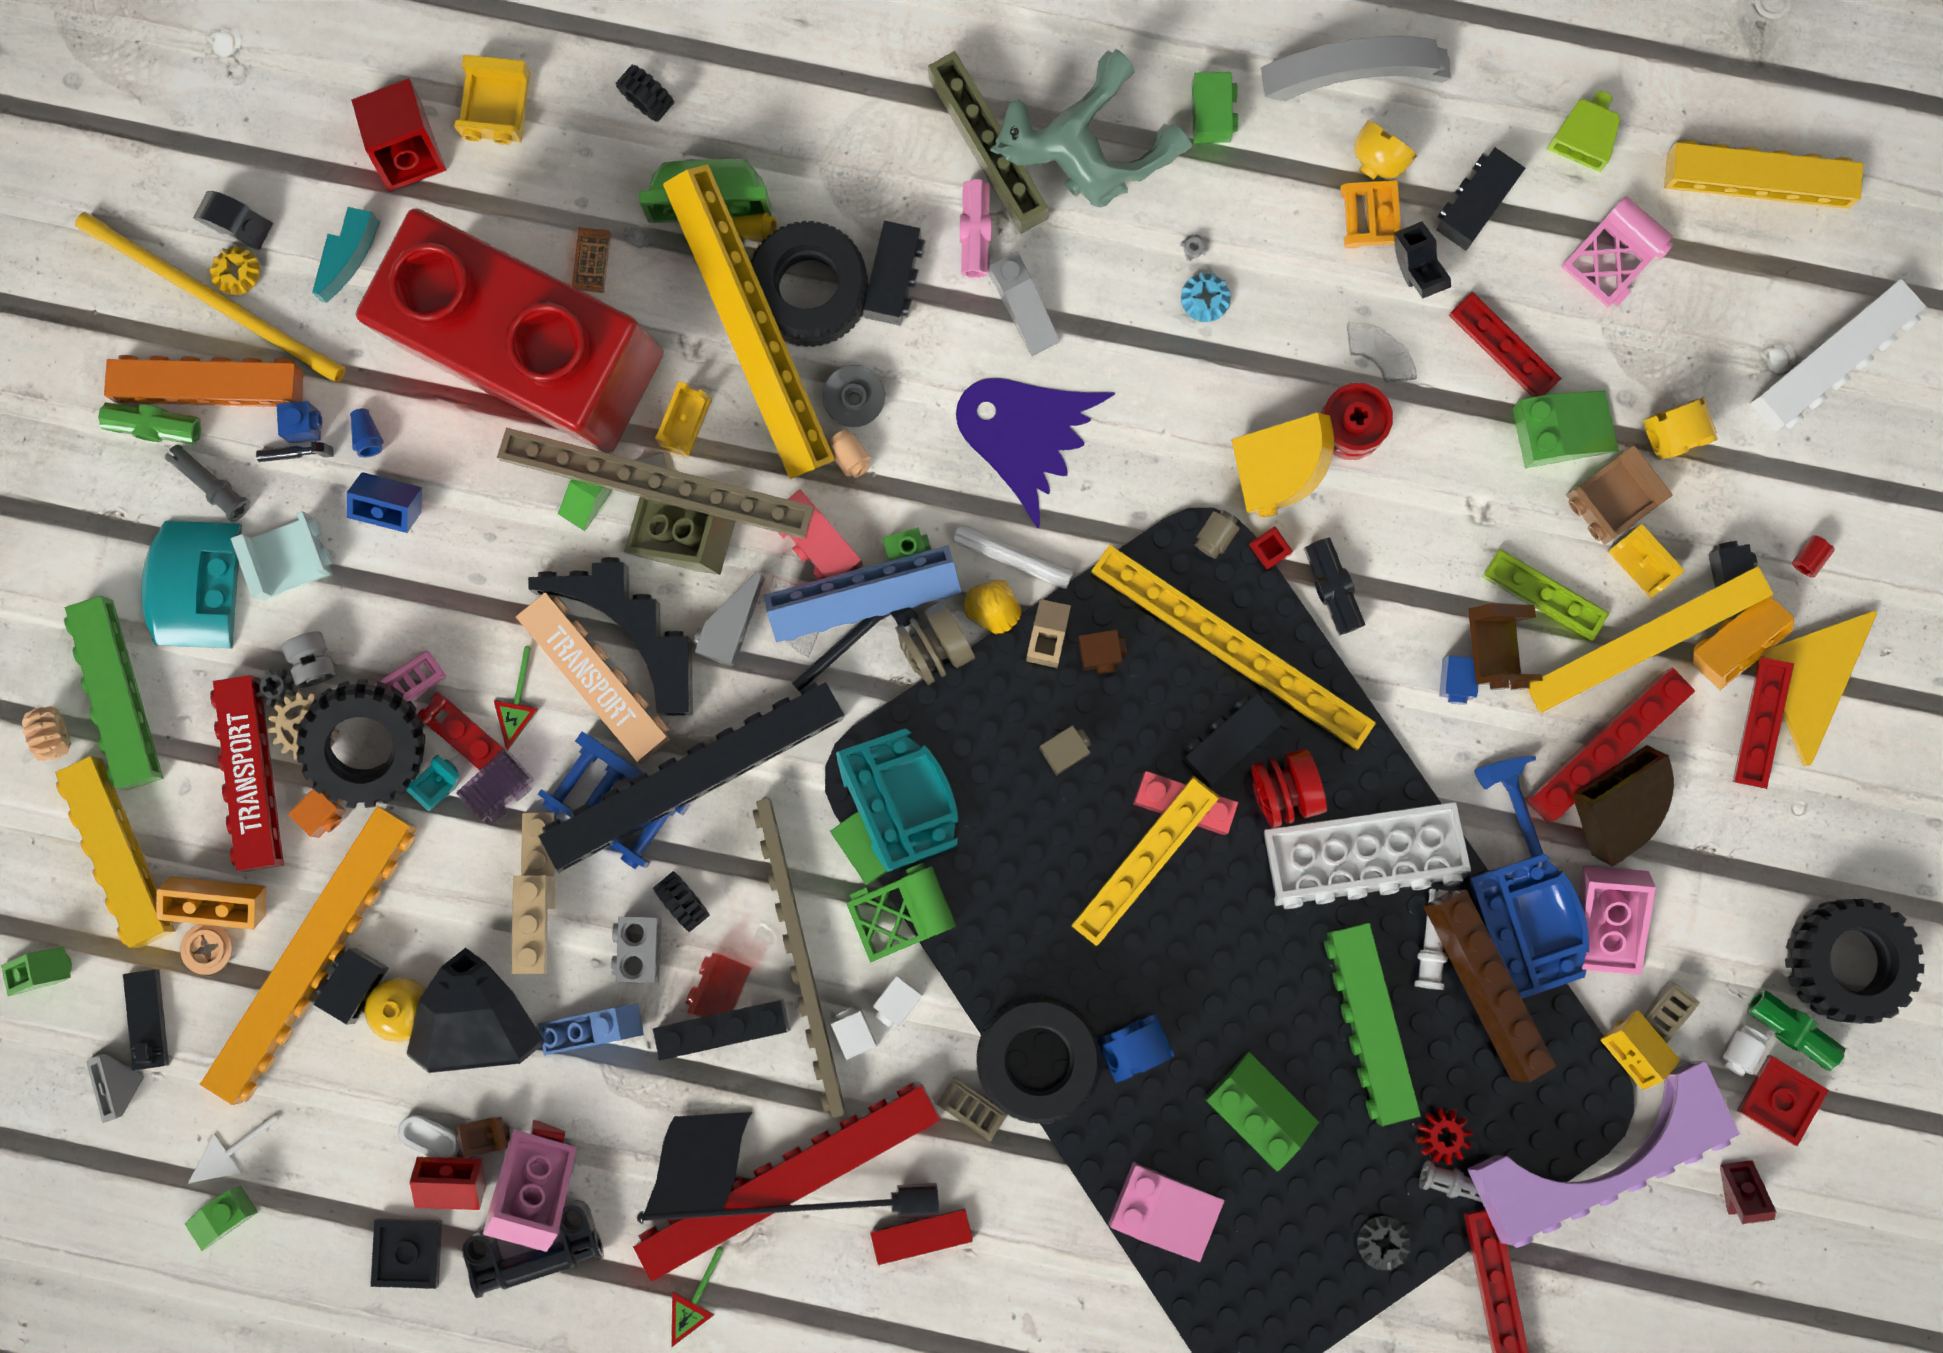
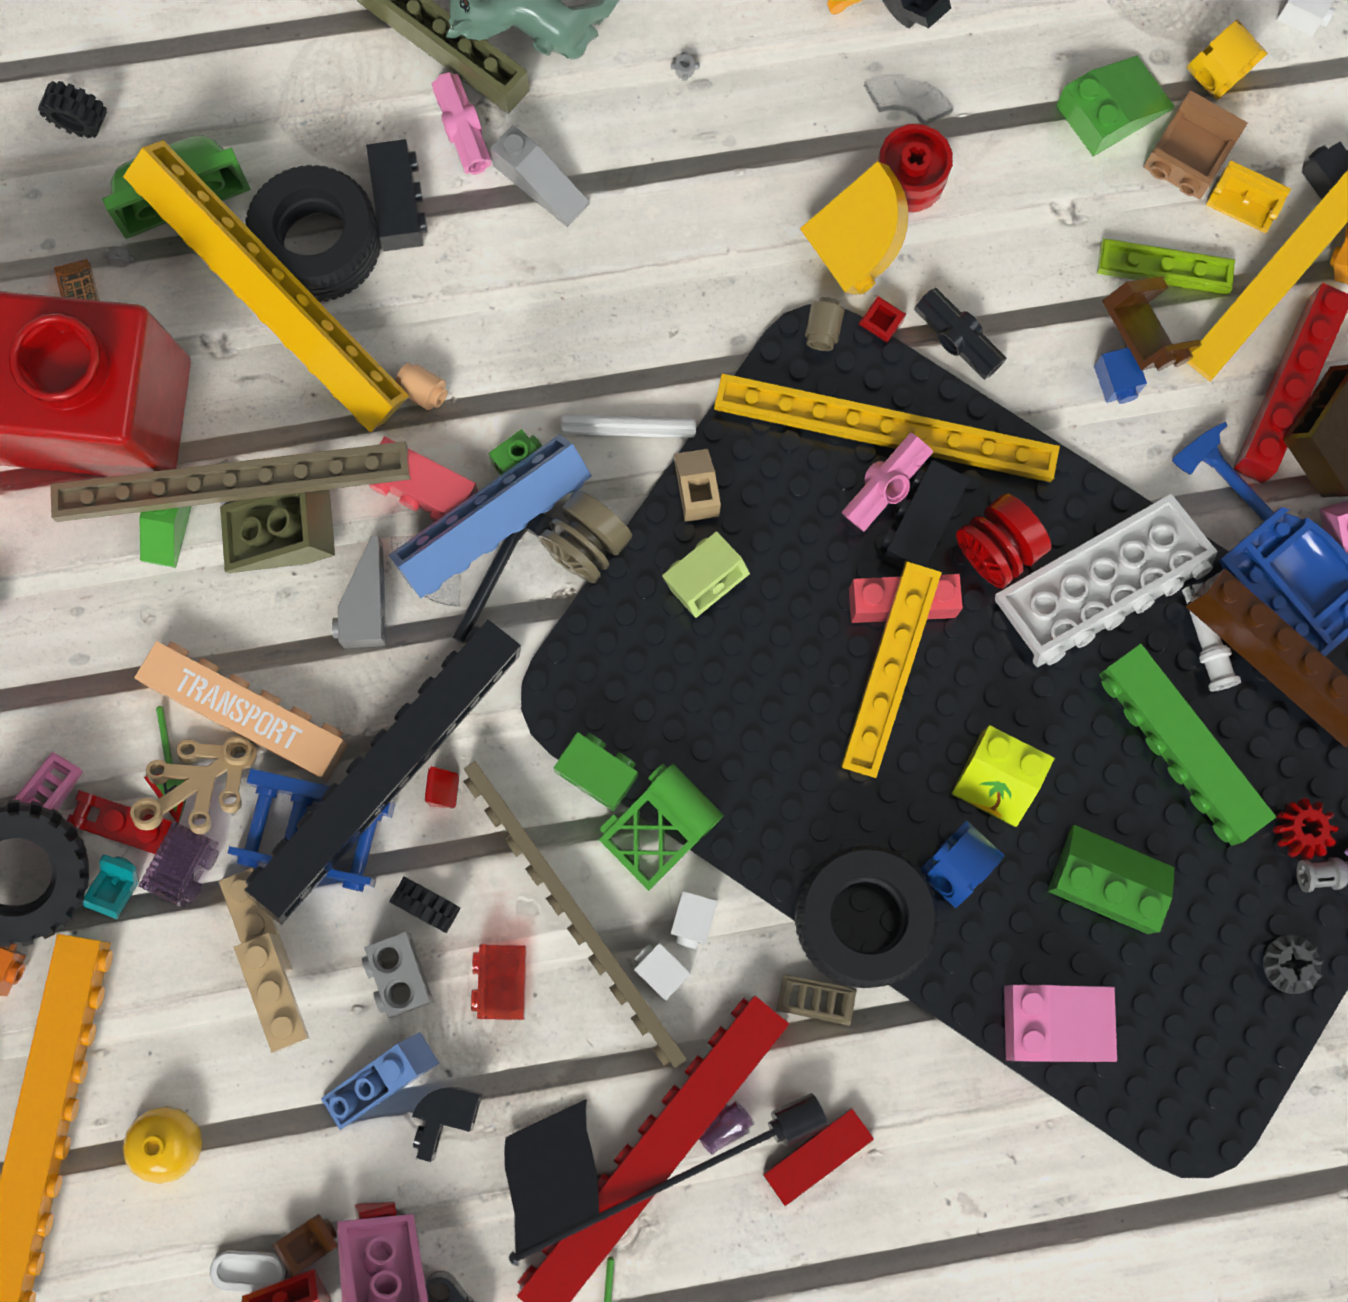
camera: 30 degrees left, 5 degrees down
(349, 985) = (98, 1140): black brick -> none
(470, 1020) = (244, 1122): black brick -> none
(537, 723) = (199, 780): none -> tan plant
(608, 592) = (266, 630): black arch -> none
(632, 1072) = (447, 1107): none -> black brick
(683, 419) = (235, 415): yellow hinge -> none
(721, 1029) = (519, 1023): black arch -> none
(733, 808) = (441, 788): none -> red slope
(755, 226) = (239, 198): yellow cone -> none
(851, 381) = (402, 313): dark grey dish -> none
(857, 1182) = (727, 1127): none -> clear purple cone
(900, 798) = (613, 705): teal slope -> none
(992, 606) = (628, 481): yellow hair -> none
(1023, 715) = (706, 574): none -> yellowish green brick
(1024, 432) = (590, 302): dark purple piece -> none
(1066, 749) = (762, 591): dark tan brick -> none
(1102, 651) = (757, 481): reddish brown brick -> none
(1196, 307) = (712, 120): medium azure gear -> none
(1204, 987) = (1002, 775): none -> neon yellow slope
(1211, 696) = (887, 482): none -> bright pink piece
(1504, 346) = (1023, 49): red tile -> none

